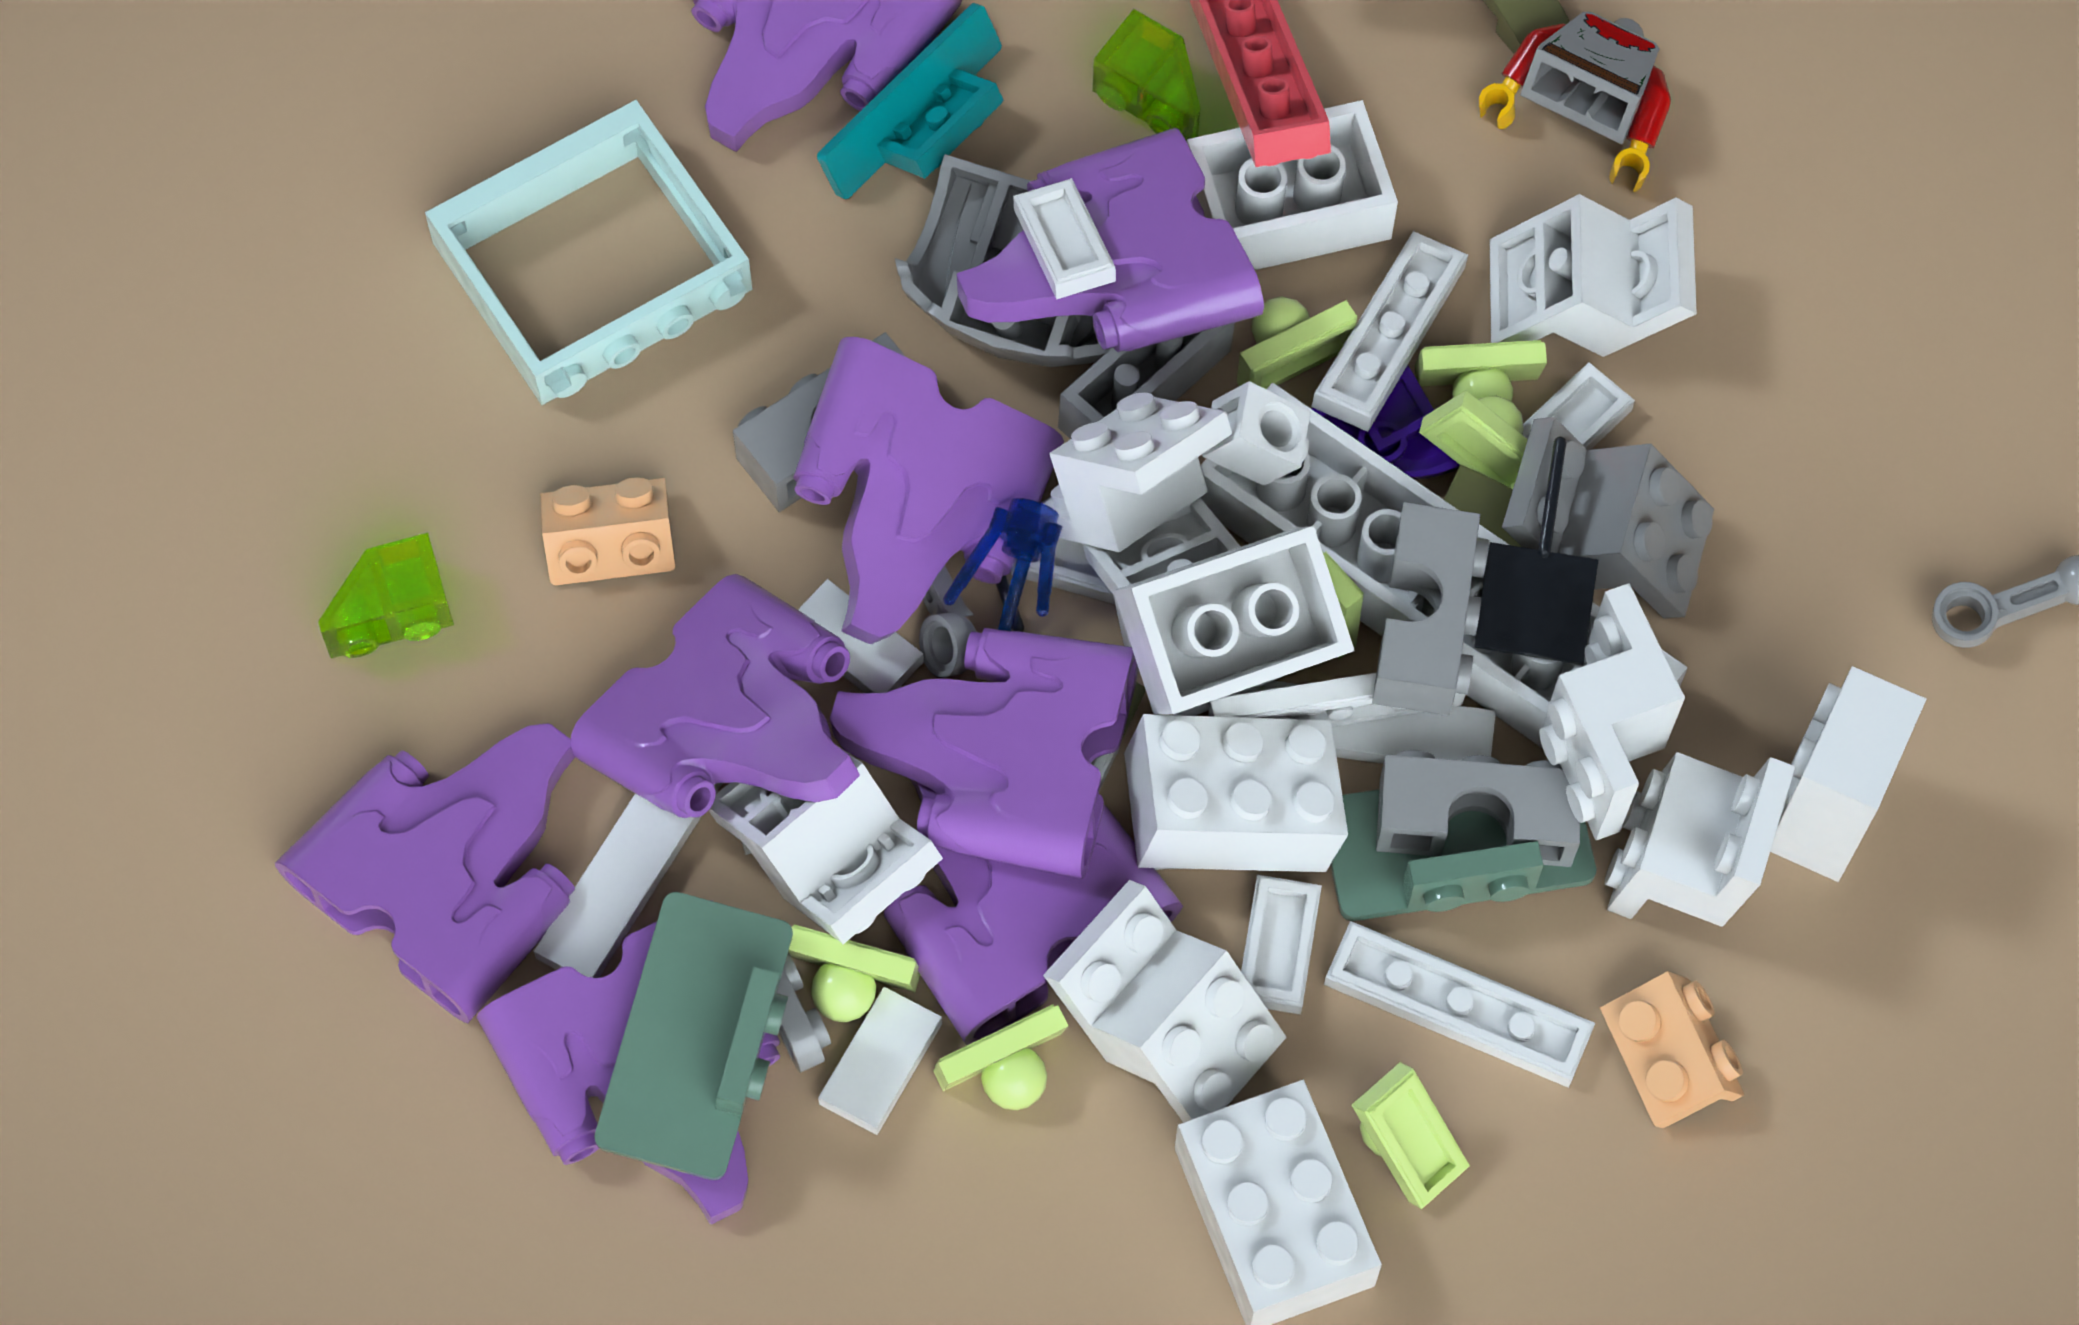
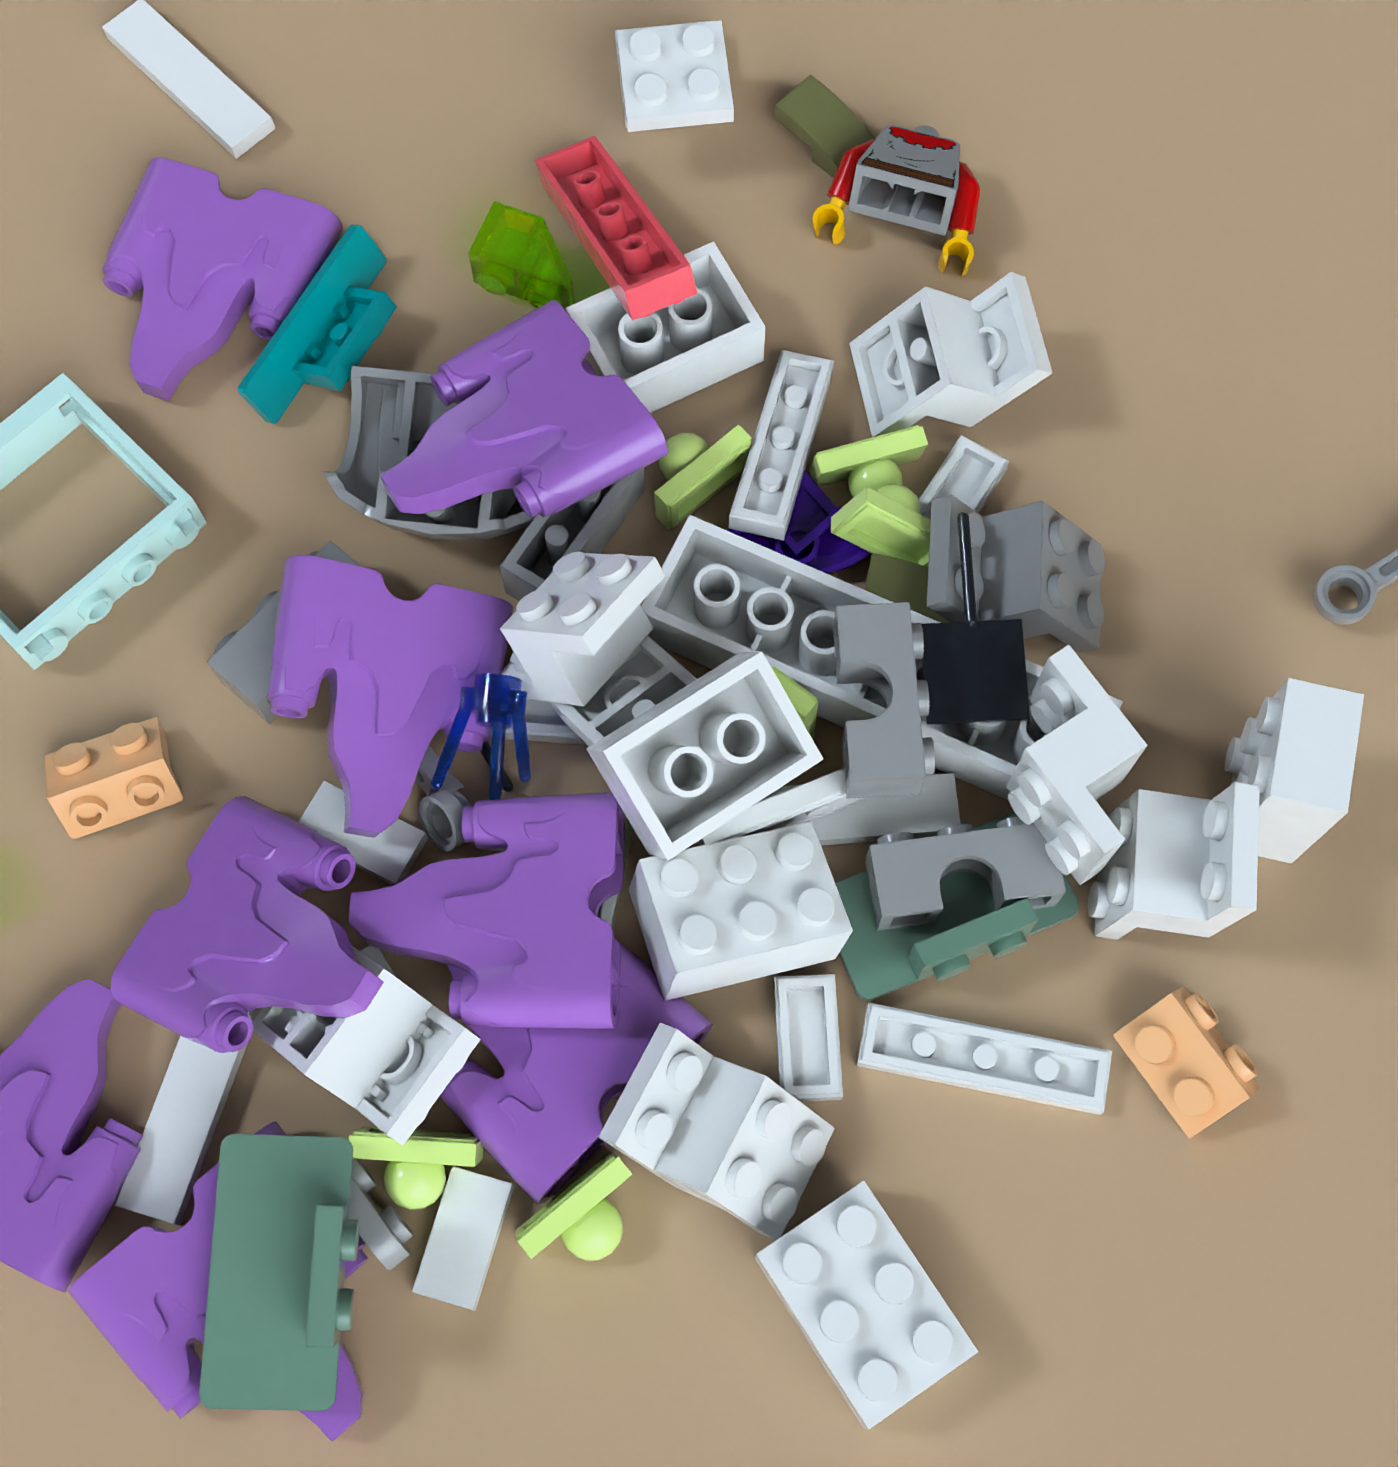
camera: 10 degrees left, 5 degrees up
(1064, 238) = (472, 422): white tile -> none
(1265, 435) = (695, 567): white brick -> none
(1409, 1135) = (972, 1207): yellowish green tile -> none

